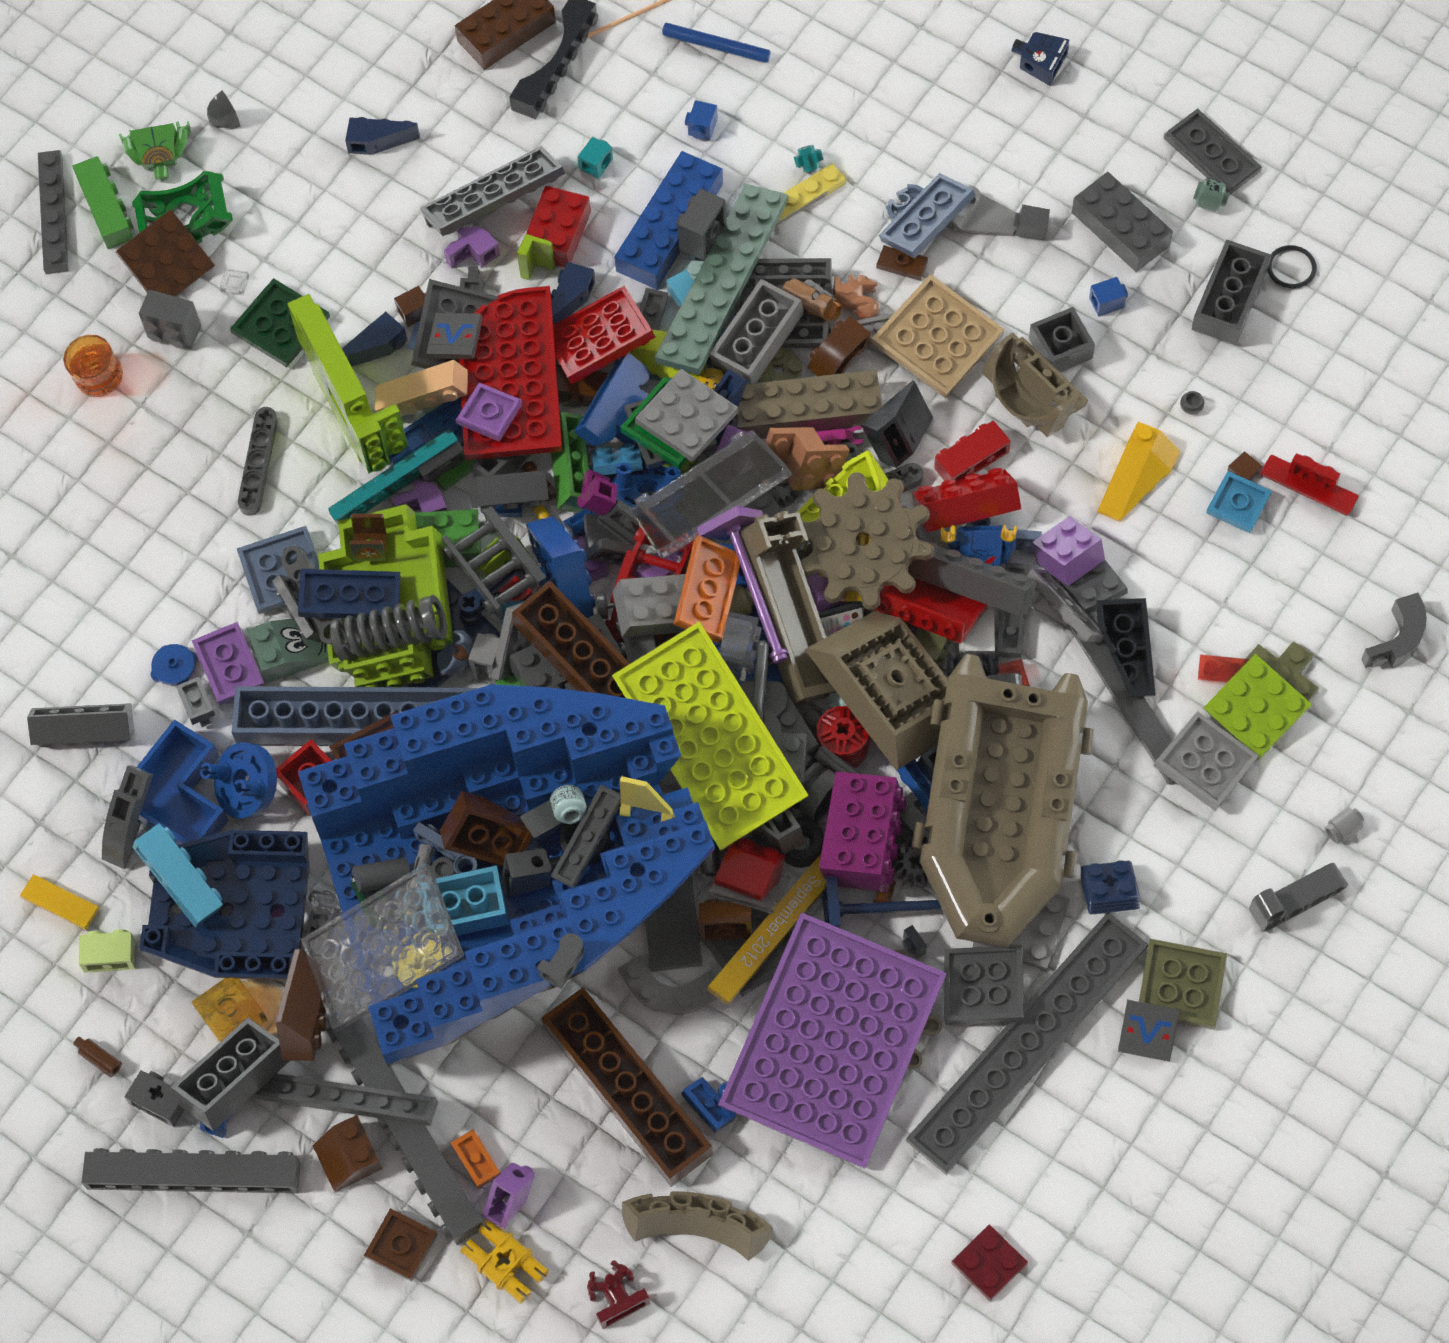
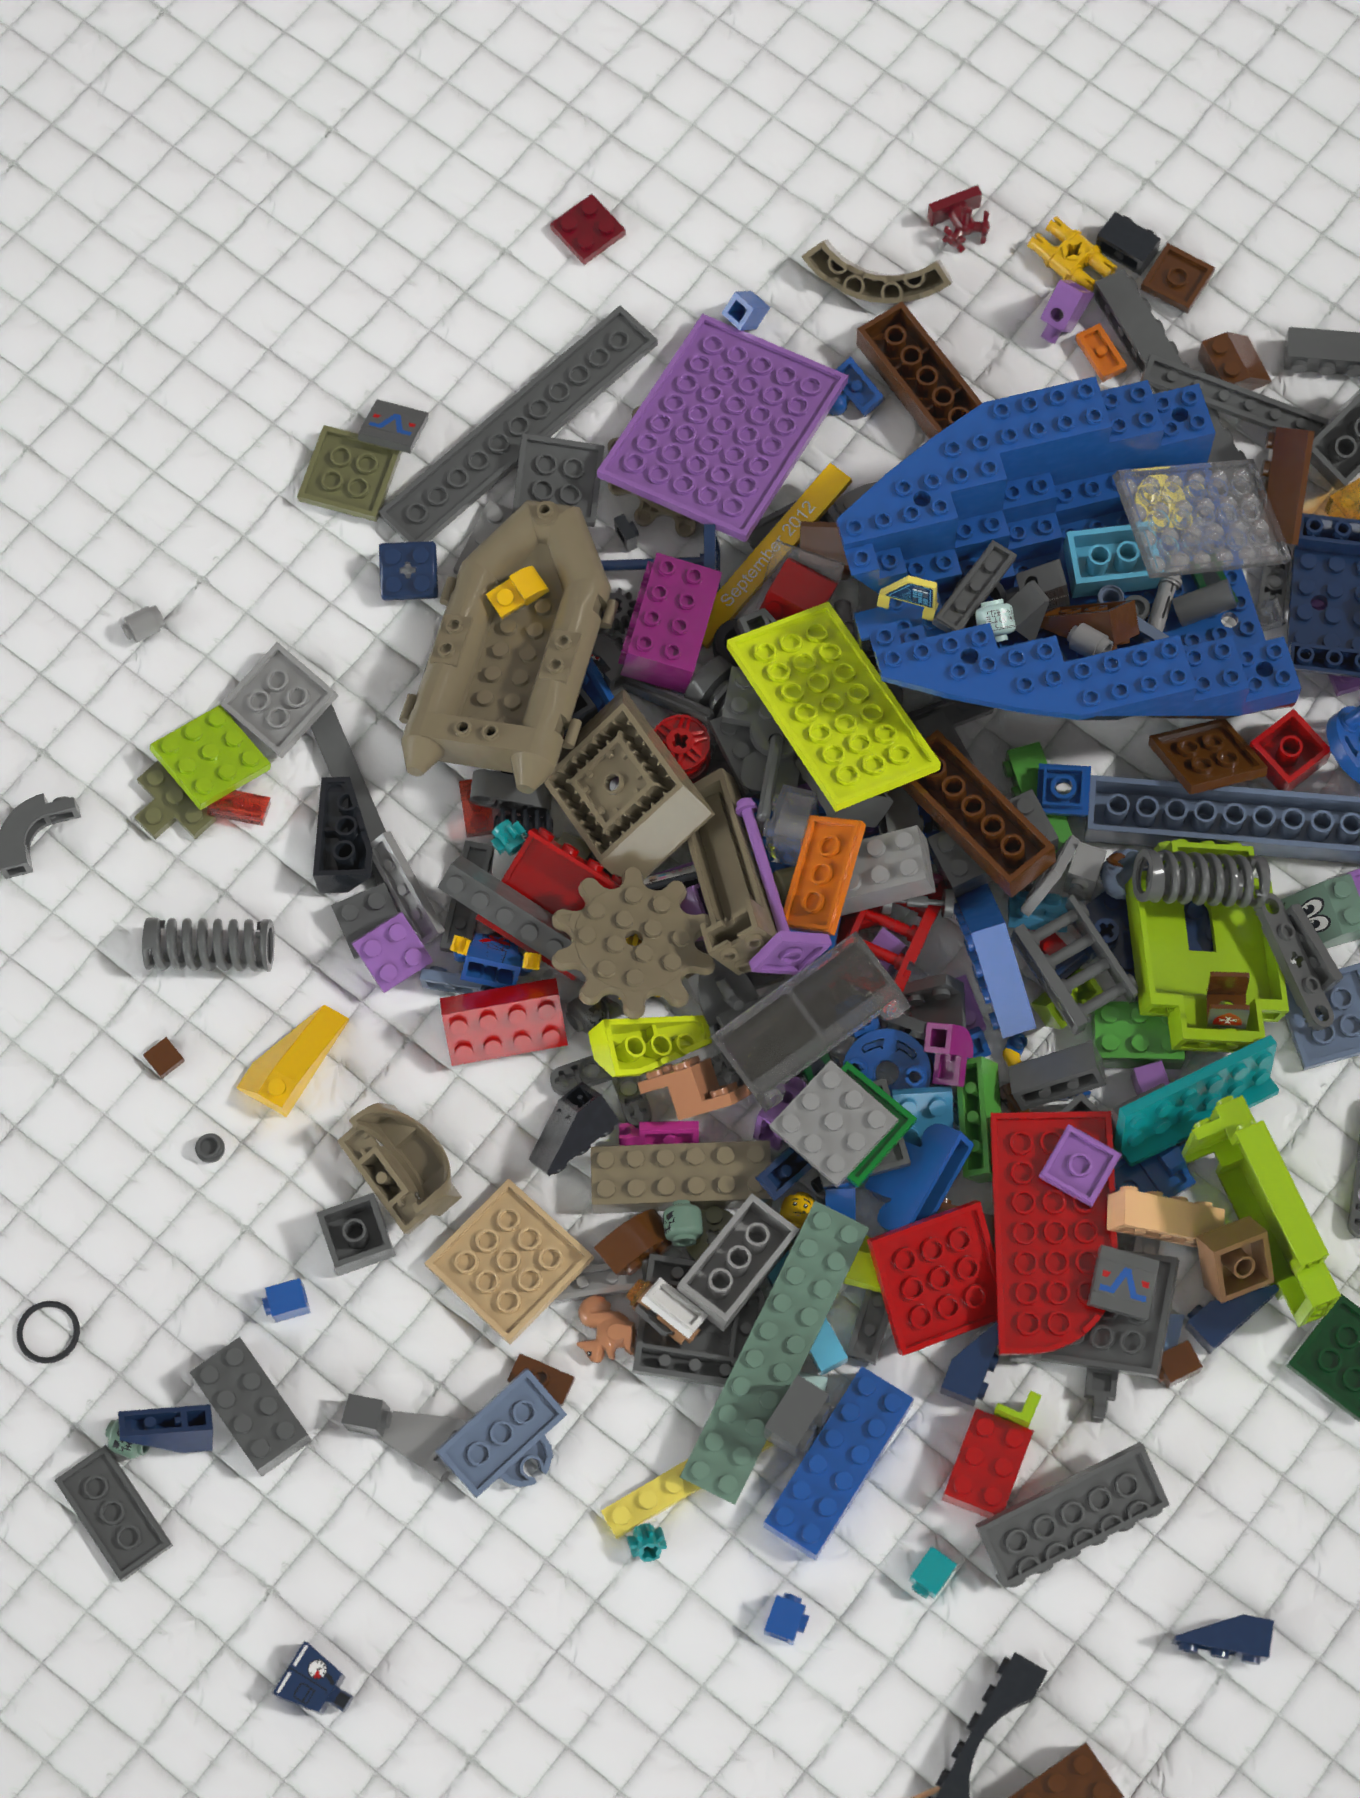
camera: 175 degrees left, 5 degrees up
(346, 592) = (1249, 939): dark blue plate -> none
(372, 366) = (1235, 1259): none -> medium nougat brick
(449, 1278) = (1128, 243): none -> black brick
(472, 242) = (1090, 1447): medium lavender brick -> none
(484, 789) = (1088, 641): none -> light grey brick
(563, 962) = (1005, 393): dark grey leg -> none
(716, 42) = (757, 1754): blue axle -> none
(802, 361) = (682, 1223): none -> sand green head
(810, 295) = (674, 1307): none -> white tile
(822, 1171) = (745, 310): none -> brick
(972, 452) = (488, 1097): red brick -> none
(982, 639) = (508, 837): none -> teal gear
(1000, 849) = (519, 590): none -> yellow brick
(1177, 544) = (152, 937): none -> dark grey piece
(1182, 193) = (170, 1428): none -> dark blue slope
(1231, 292) = (132, 1286): dark grey brick -> none
(1238, 502) = (180, 1010): dark azure plate -> none
(1277, 907) = (211, 549): dark grey beam -> none
(1311, 481) = (92, 1028): red bracket -> none

